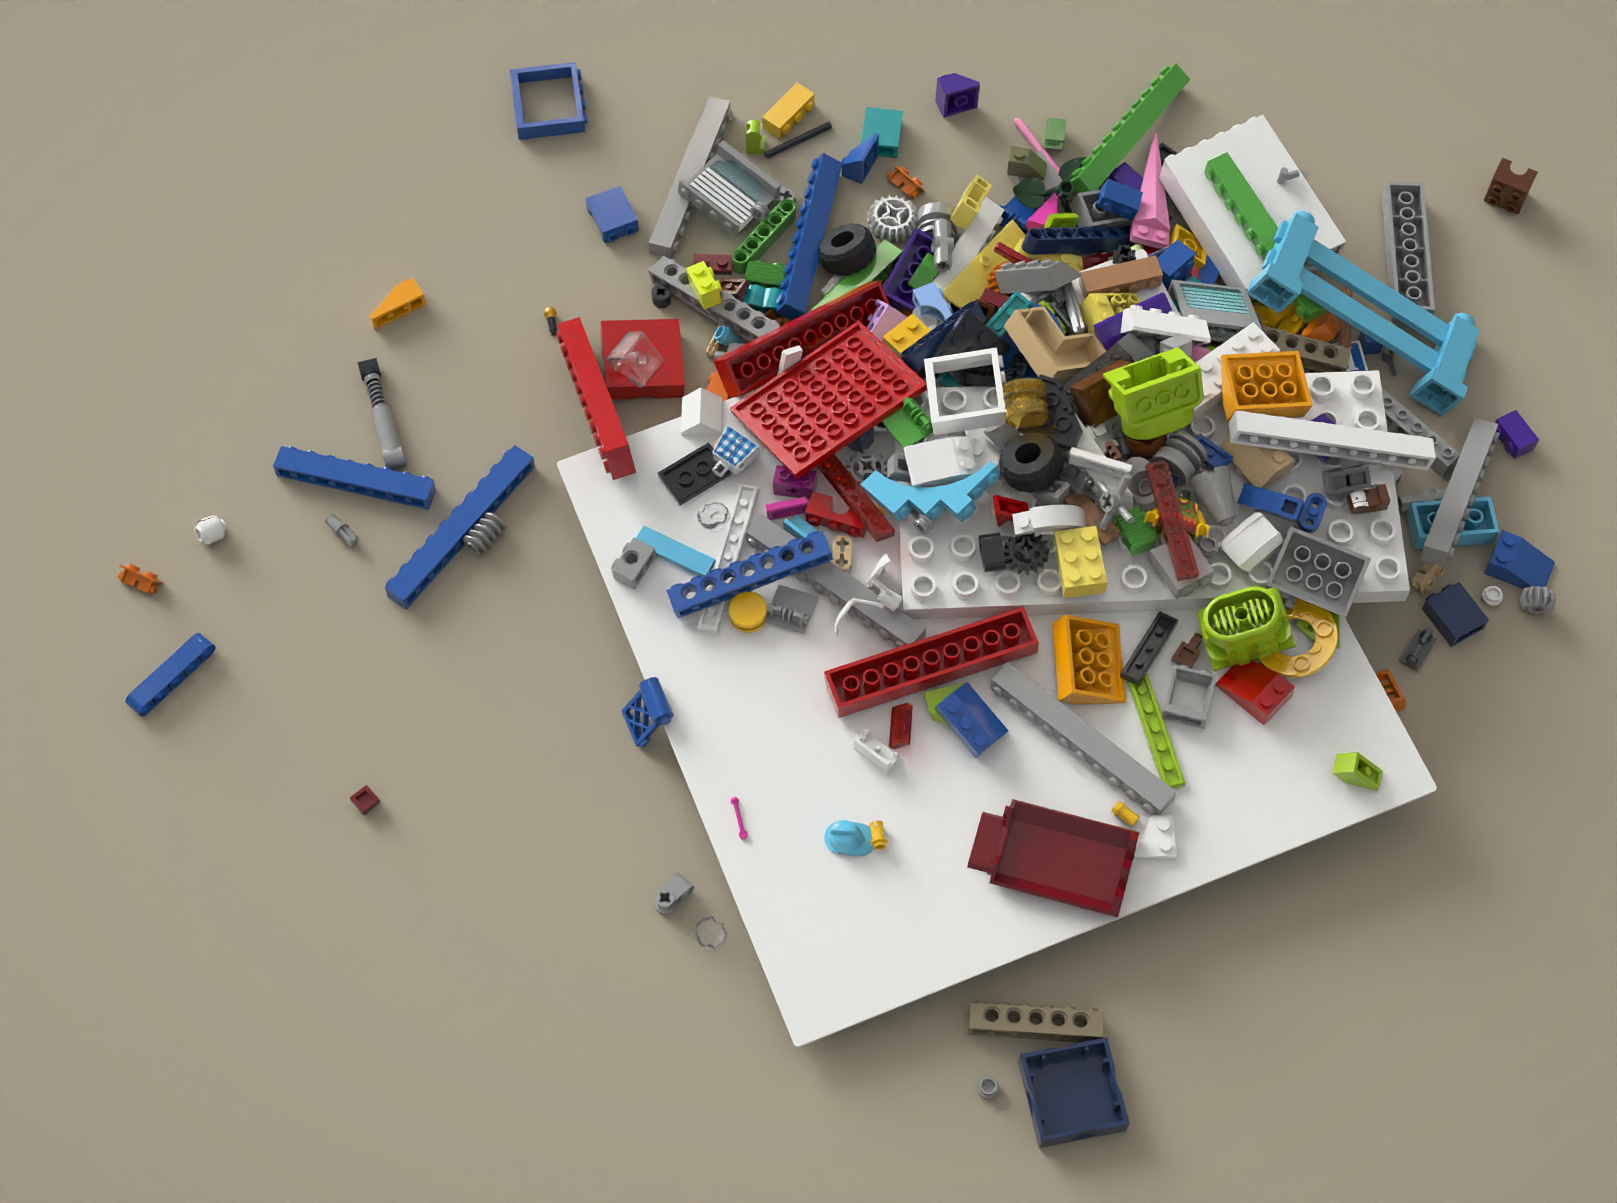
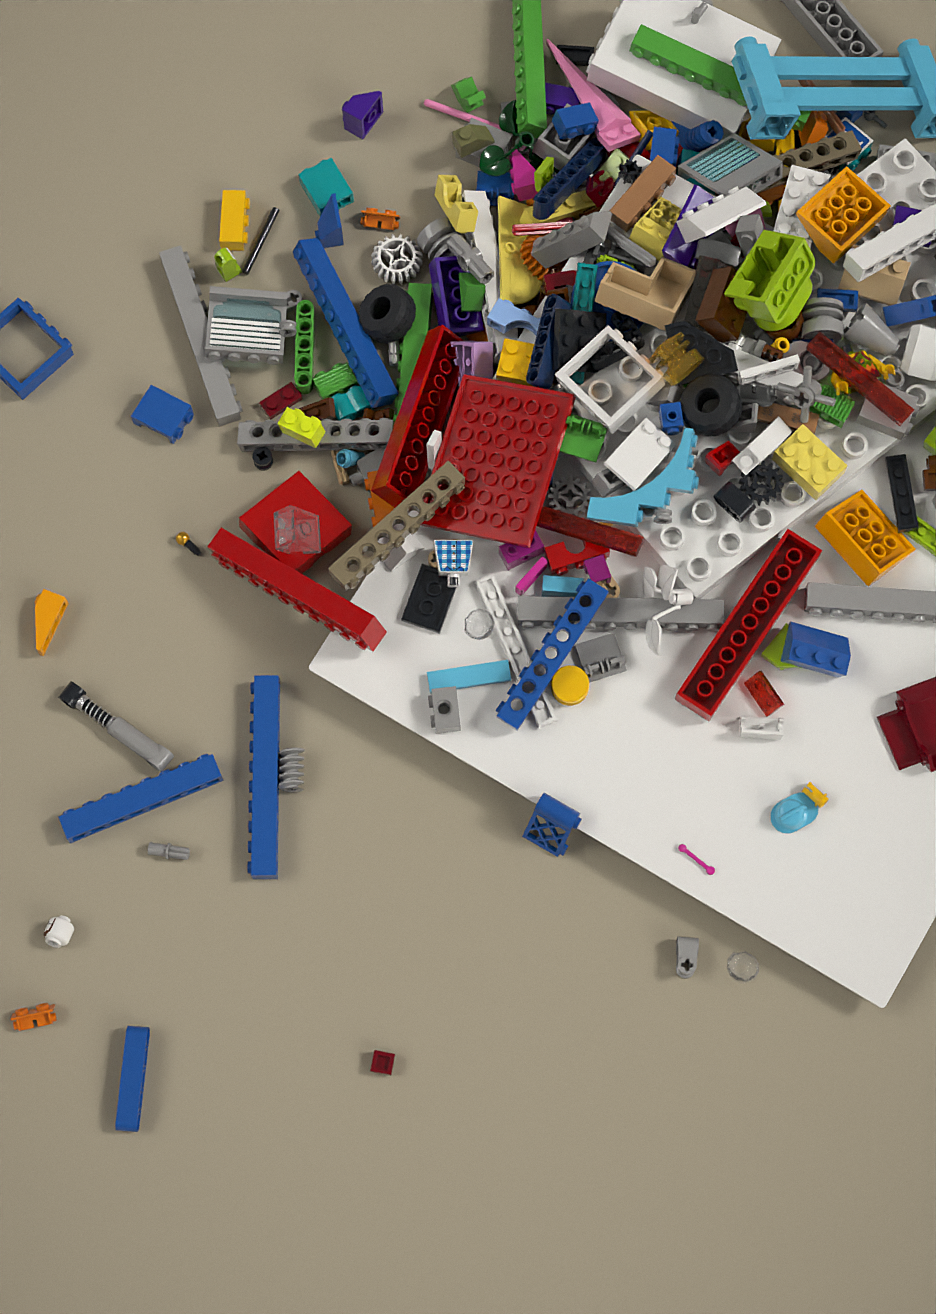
camera: 35 degrees left, 10 degrees up
(699, 388) = (444, 475): none -> dark tan brick
(841, 535) = (597, 569): none -> magenta panel
(989, 450) = (671, 418): none -> blue brick
(1129, 450) = (781, 344): none -> yellow pin
(1221, 274) = (704, 135): none -> blue piece

